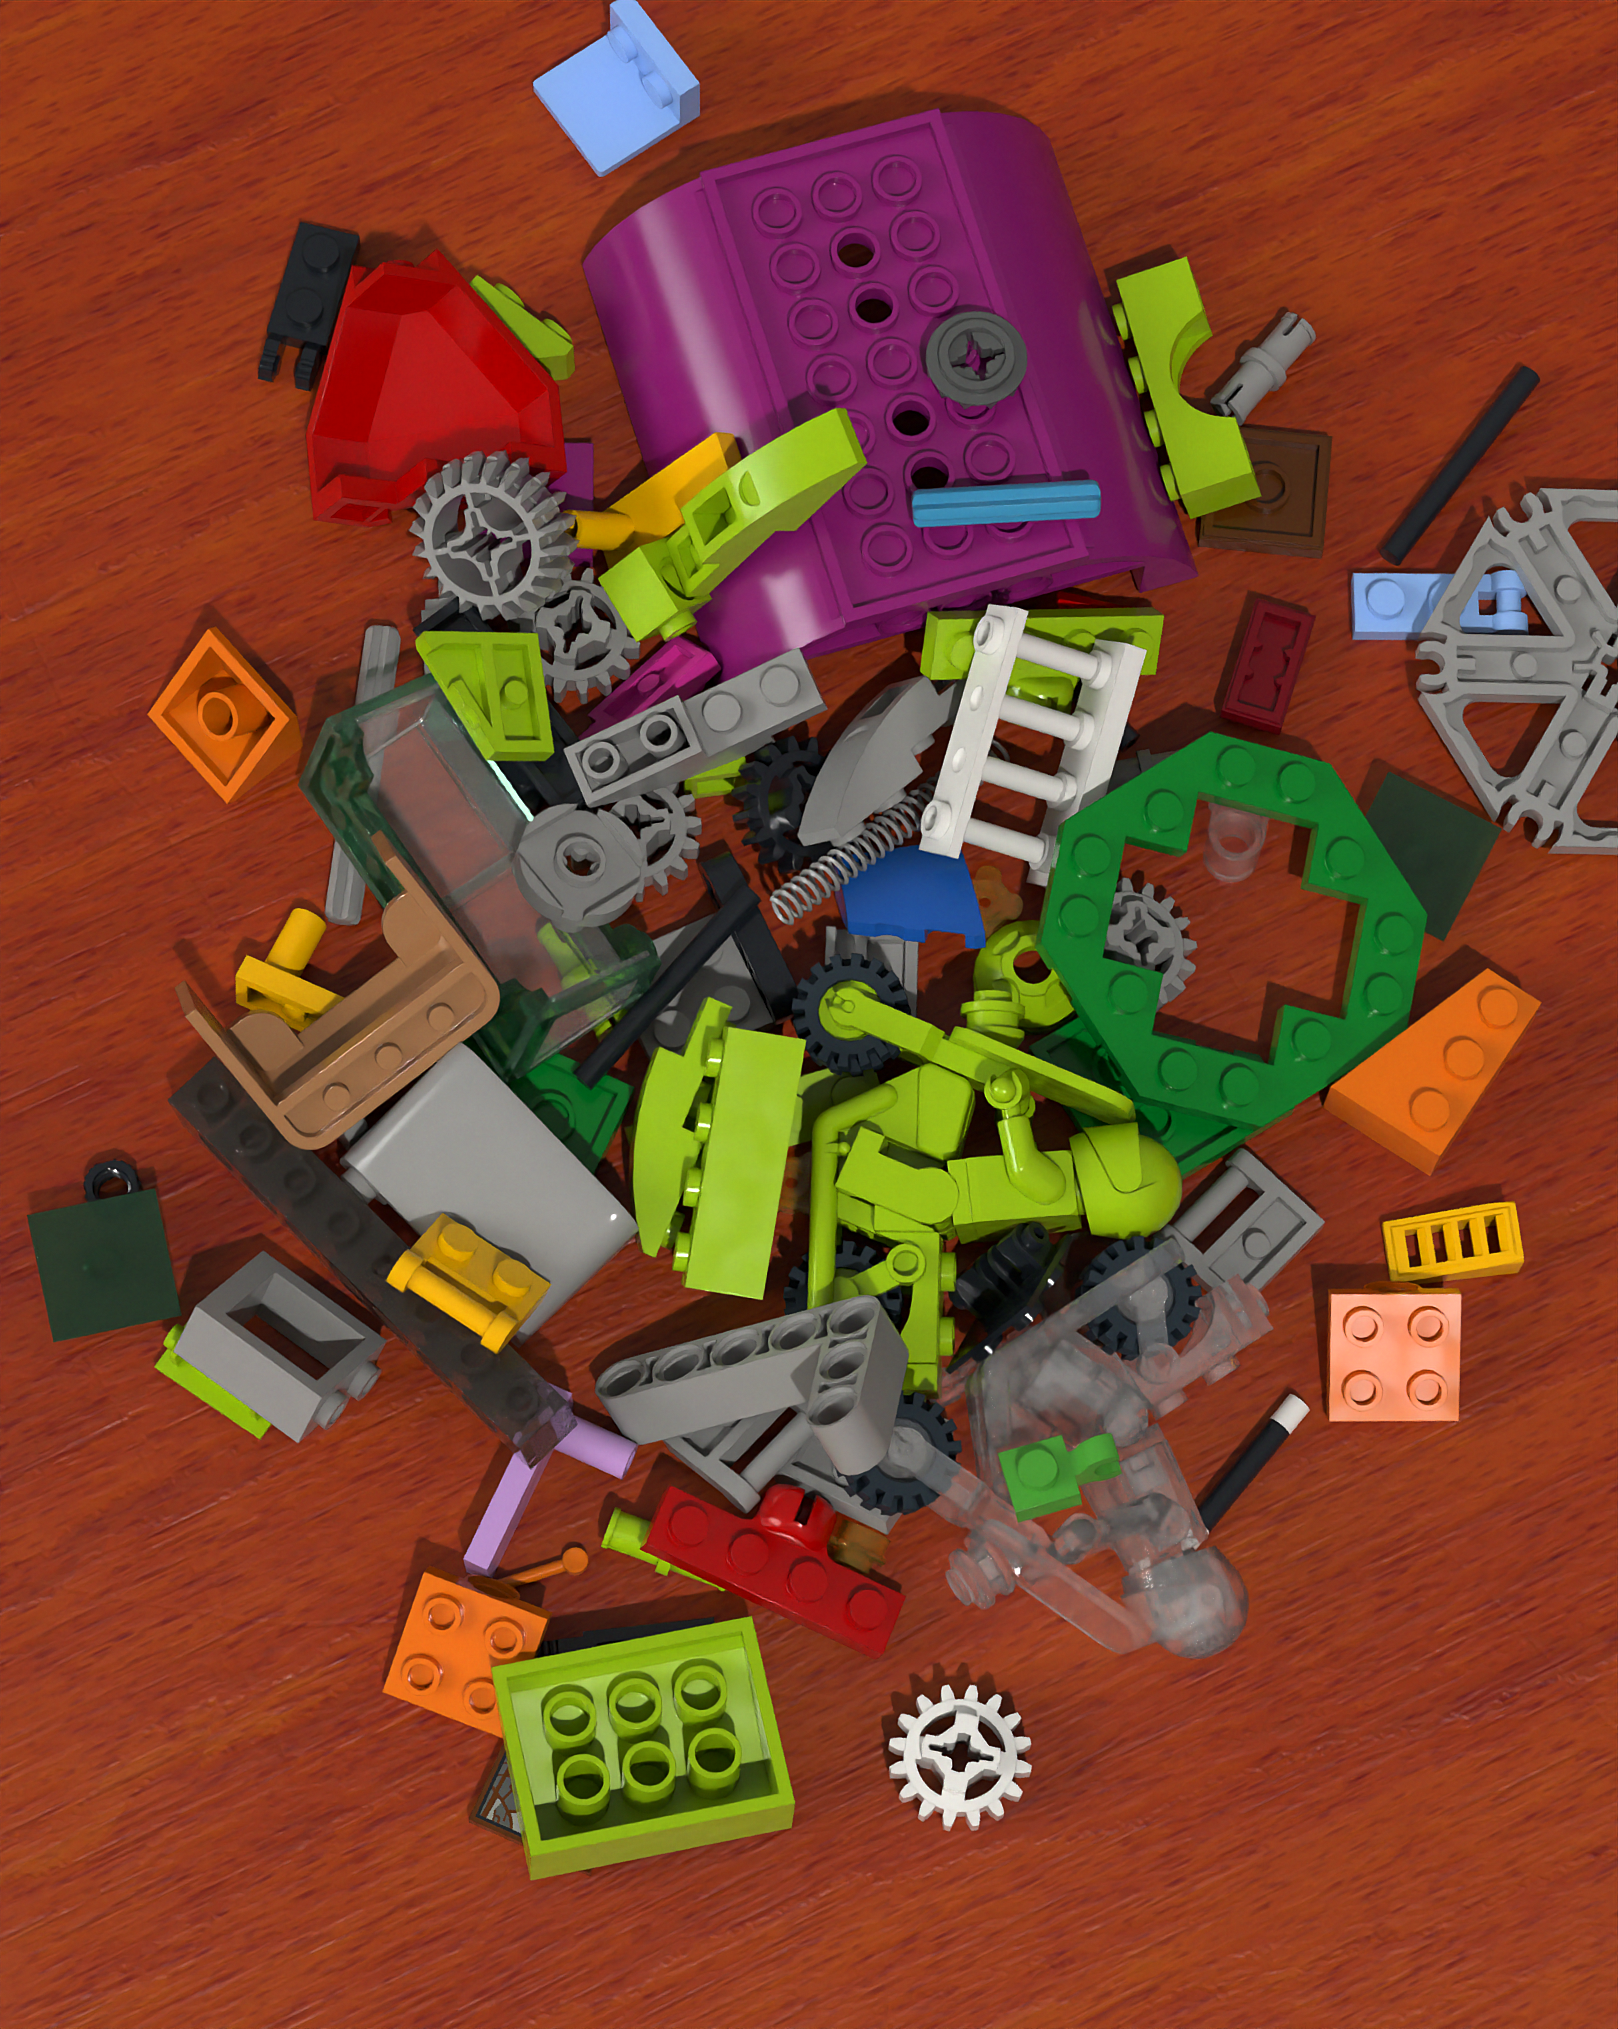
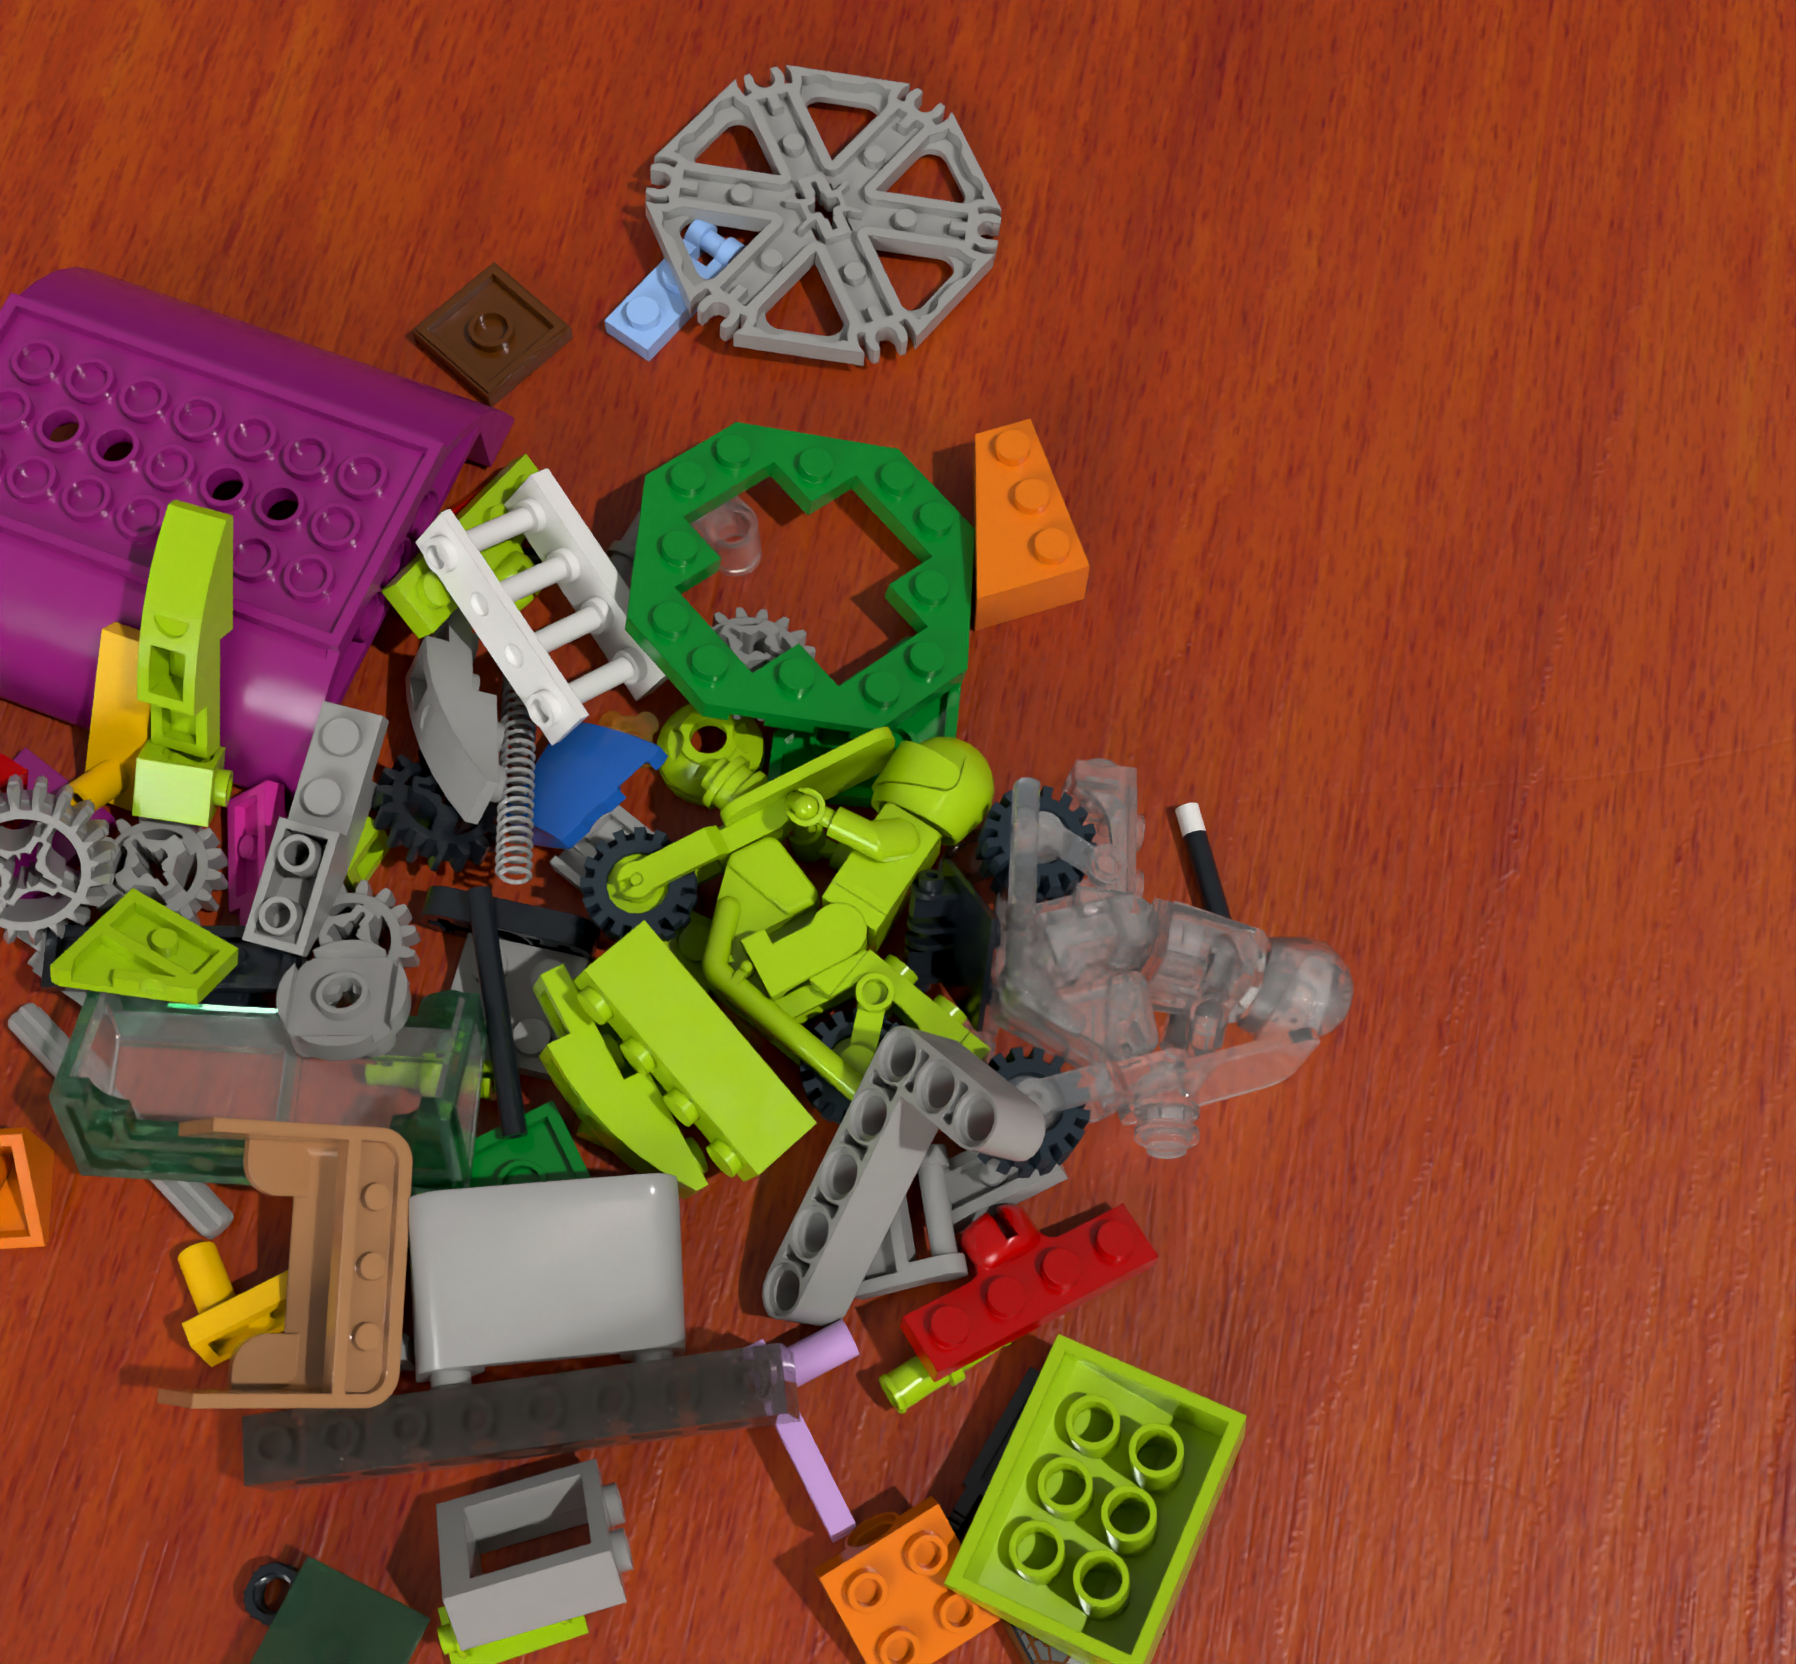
camera: 50 degrees left, 5 degrees down
(470, 1281) = (613, 1346): yellow plate -> none
(573, 1562) = (892, 1447): orange hinge -> none
(859, 1547) = (1056, 1209): clear yellow plate -> none
(928, 1754) = (1303, 1278): white gear -> none
(991, 338) = (217, 383): dark grey gear -> none
(1006, 503) = (352, 465): dark azure axle -> none
(1047, 1477) = (1143, 1006): bright green plate -> none
(1205, 451) = (432, 339): lime arch -> none
(1259, 1241) = (1042, 730): light grey plate -> none
(1263, 368) = (405, 268): light grey pin -> none
(1267, 666) = (622, 423): dark red plate -> none
(1393, 1353) = (1205, 711): plate -> none
(1433, 846) = (848, 406): clear green plate -> none
(1459, 465) = (588, 205): black bar -> none
(1474, 1218) = (1168, 582): yellow slope -> none

